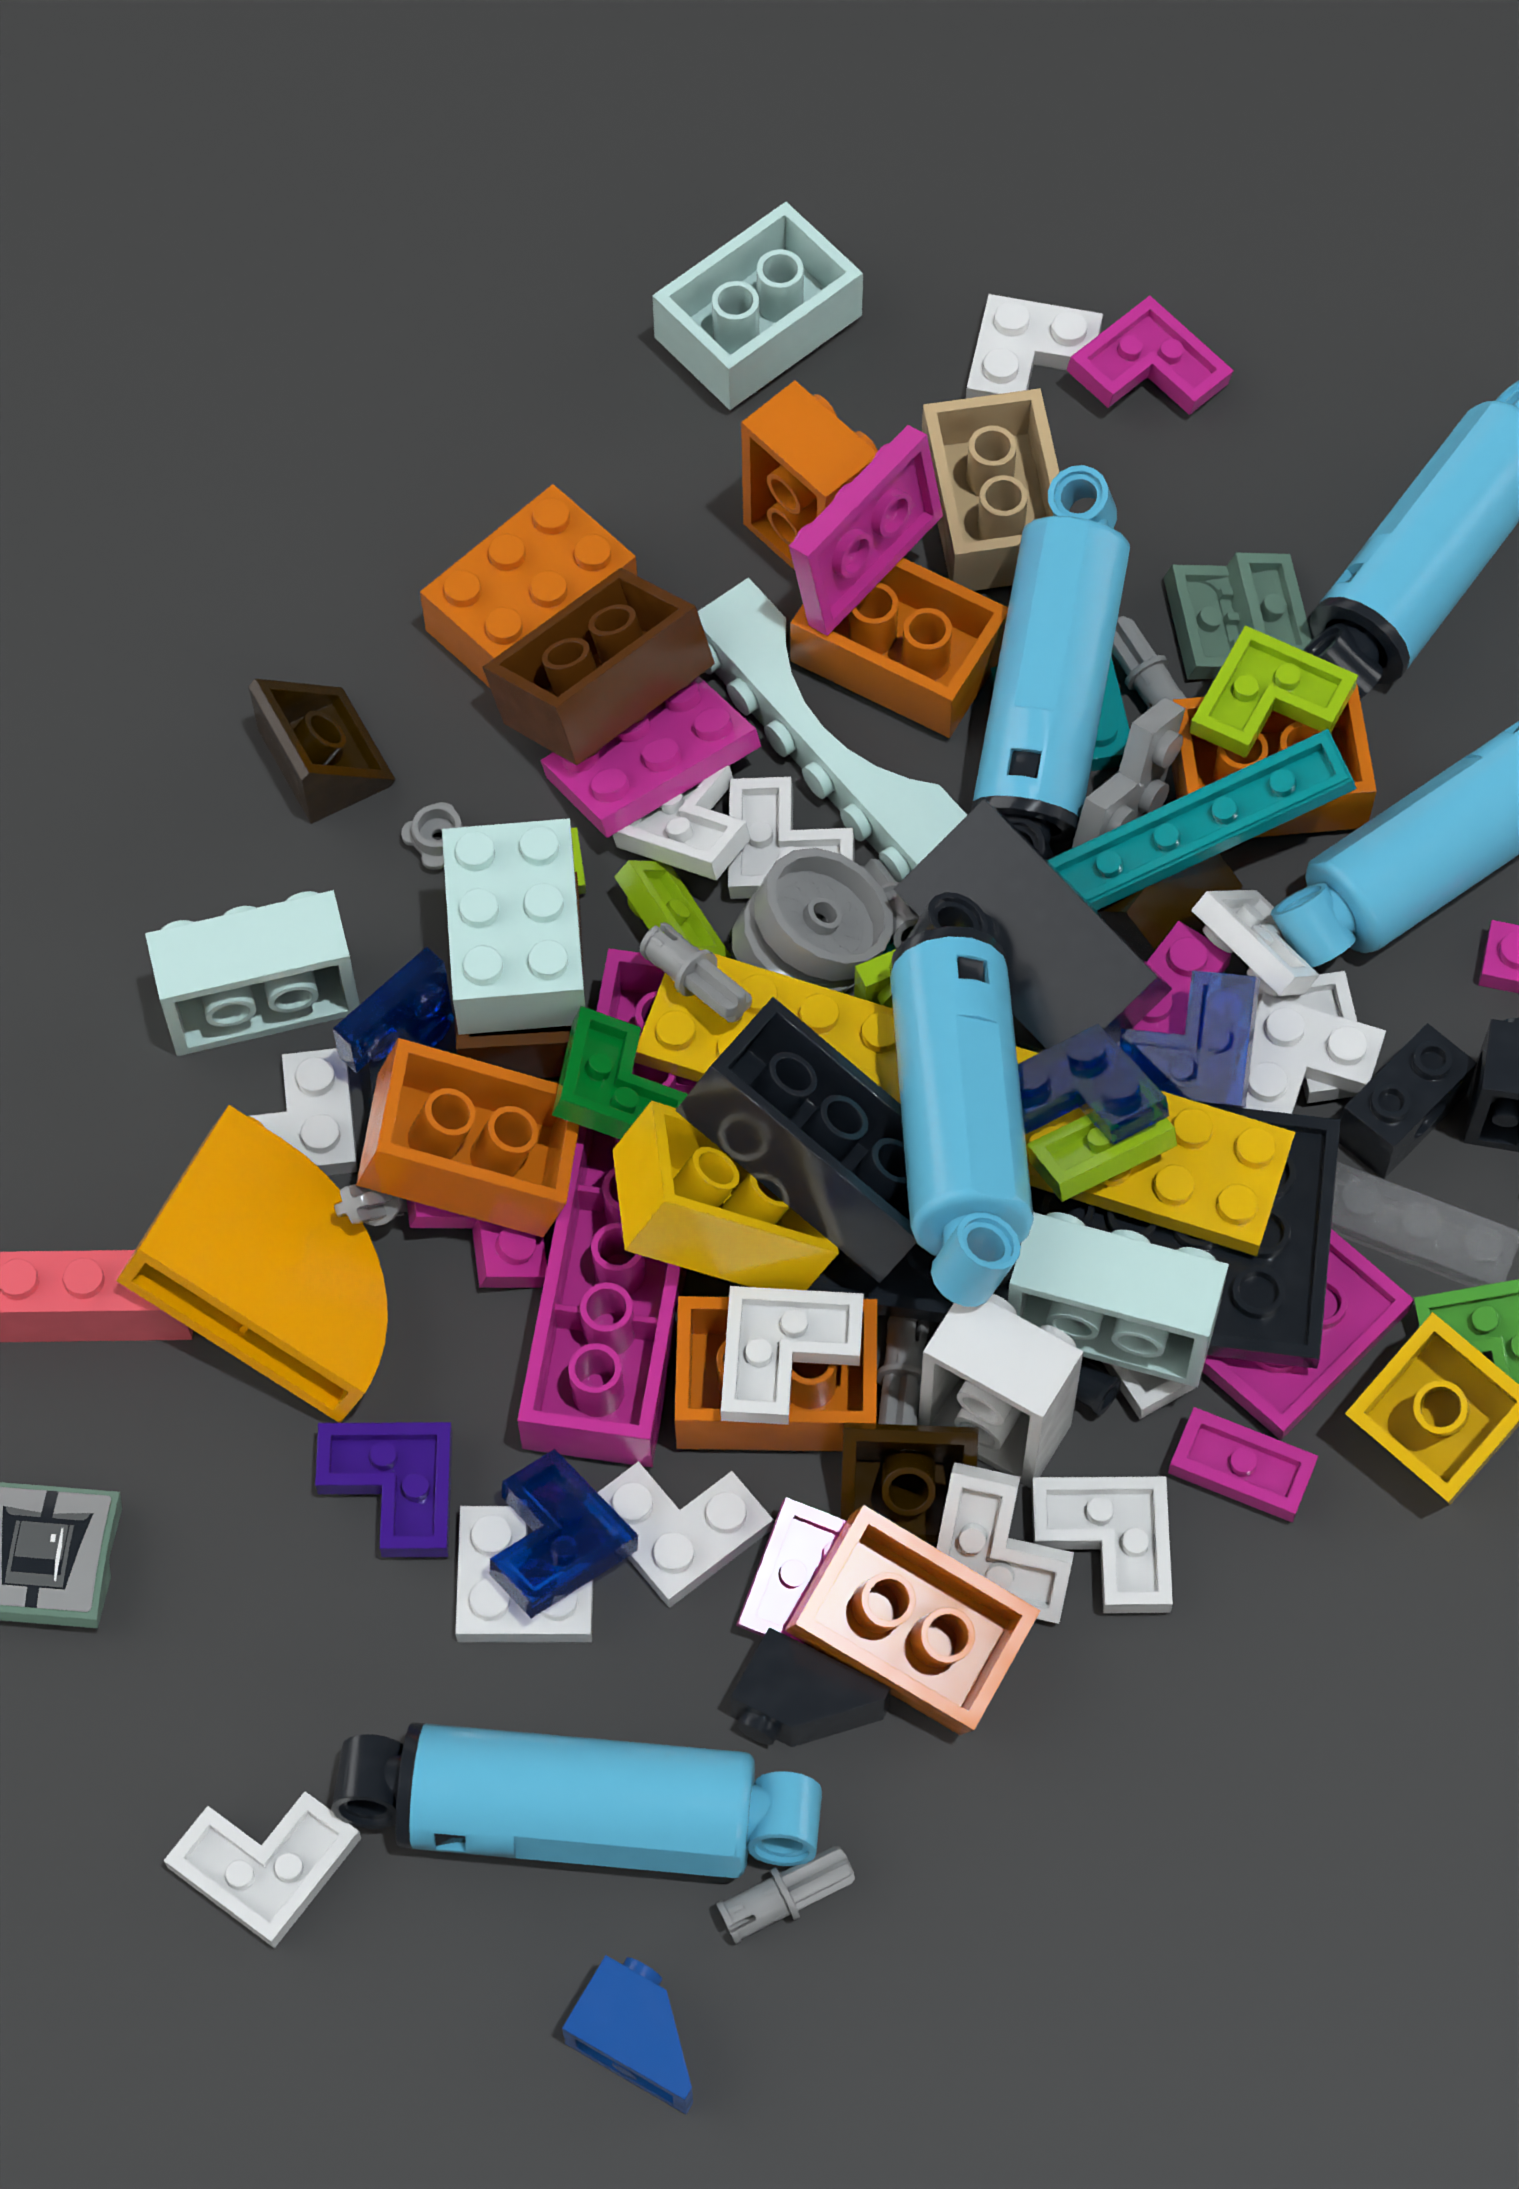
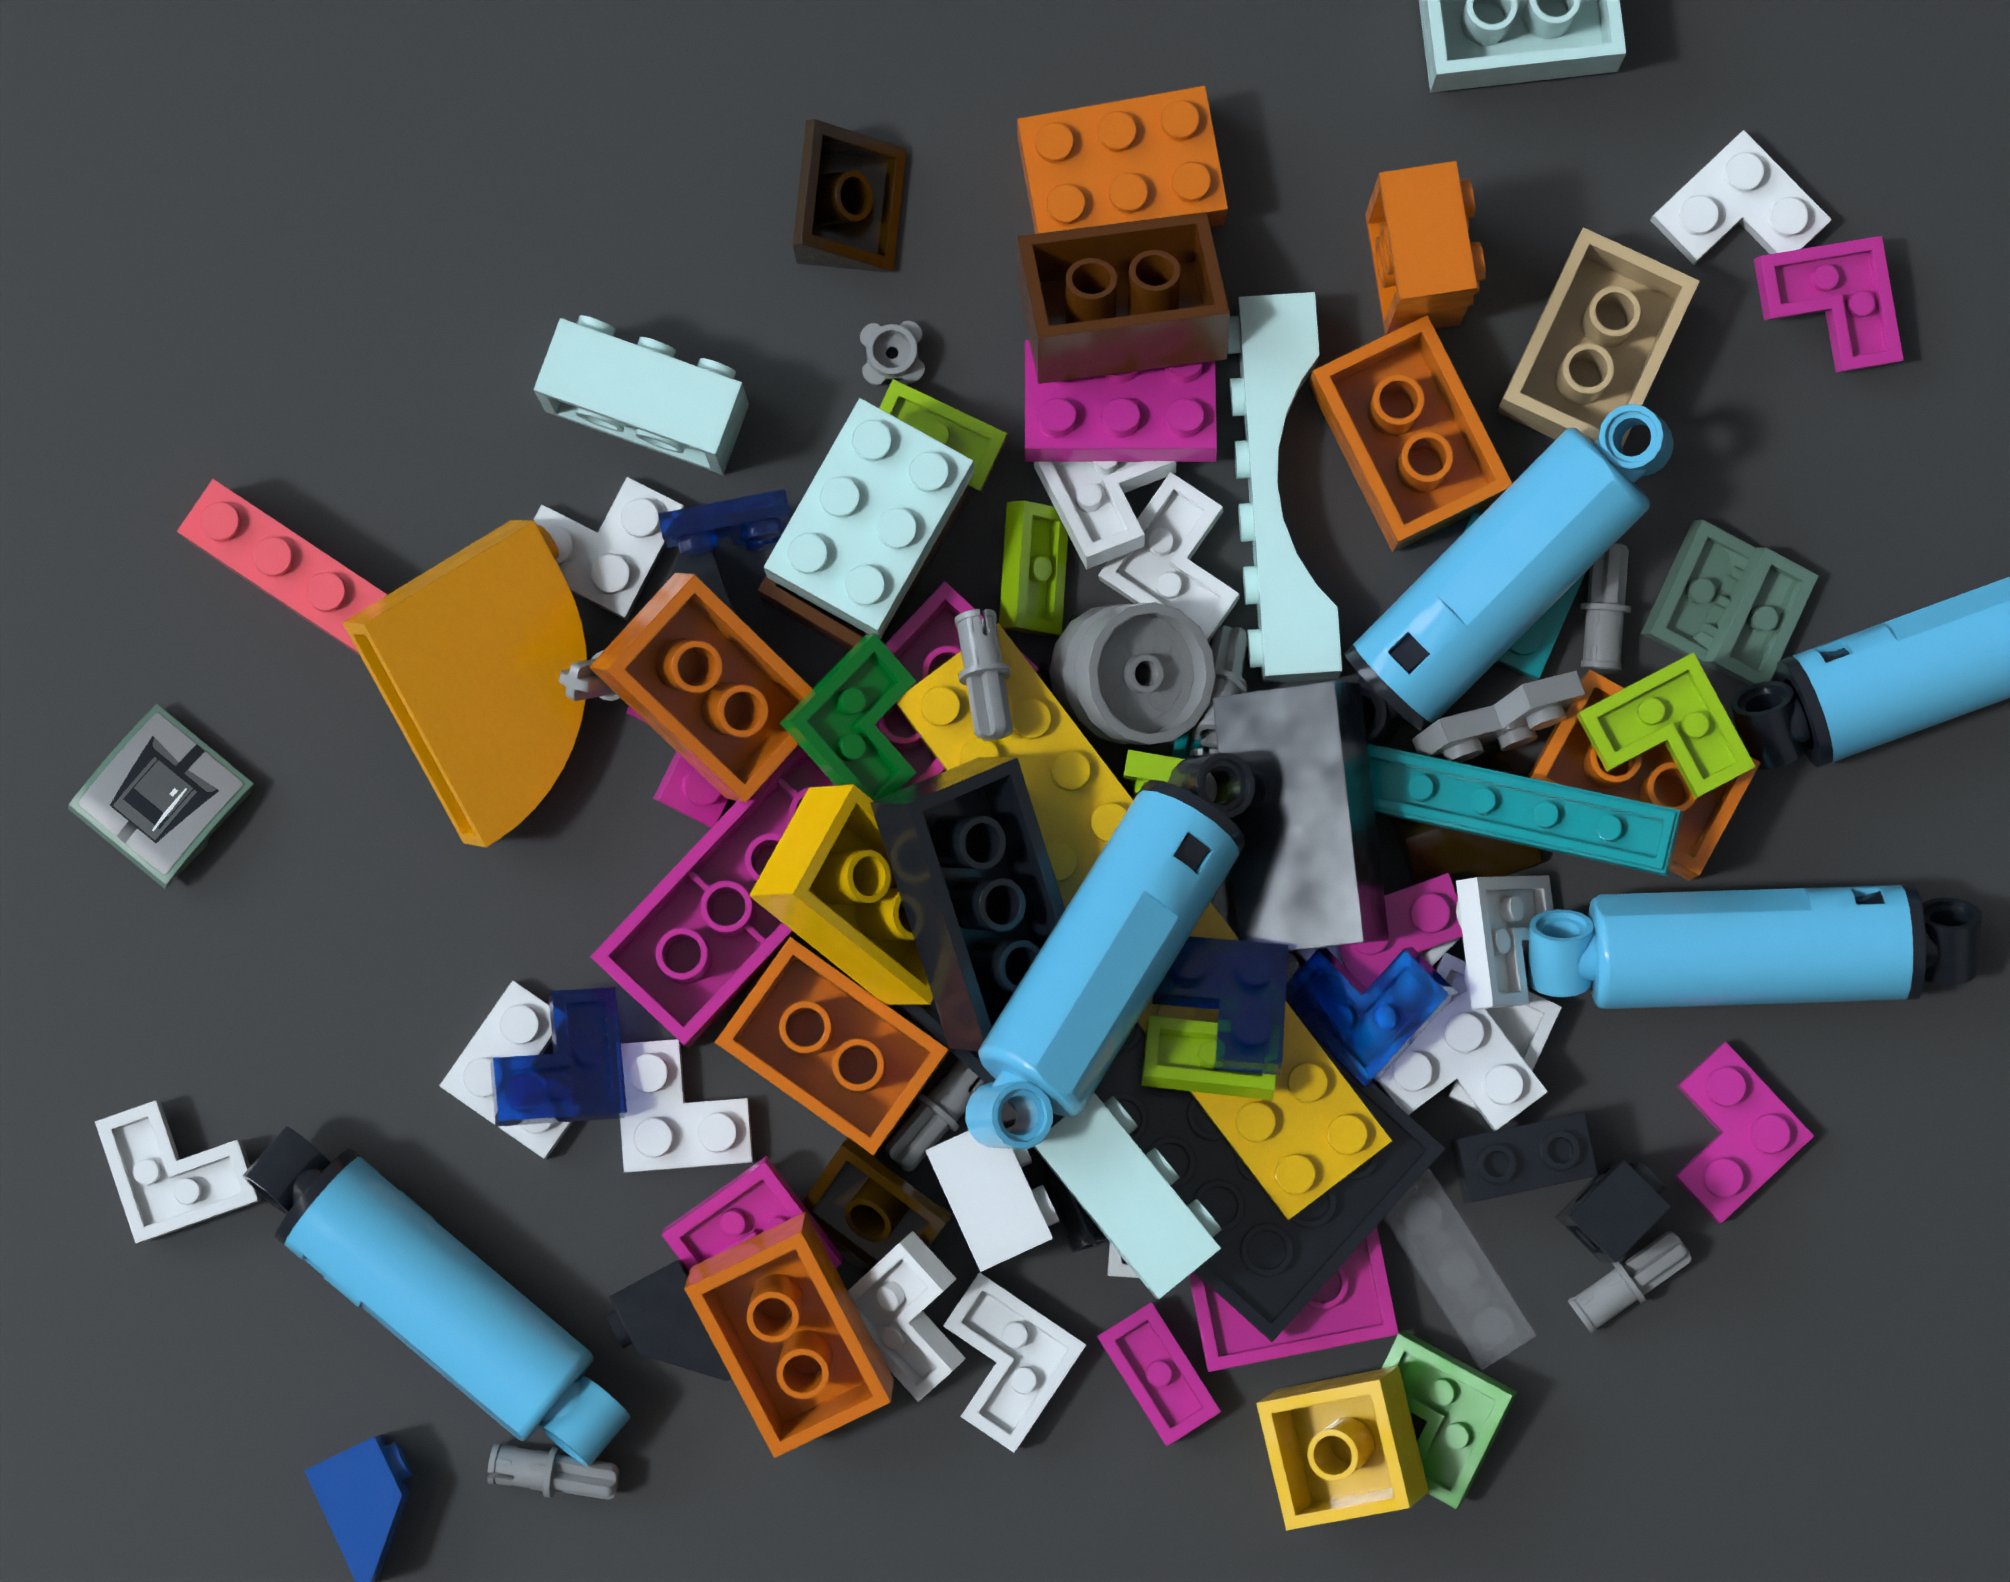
camera: 35 degrees right, 20 degrees up
(403, 1463) = (492, 917): dark purple plate -> none
(772, 1331) = (832, 1027): white plate -> none
(866, 530) = (1424, 342): dark pink plate -> none

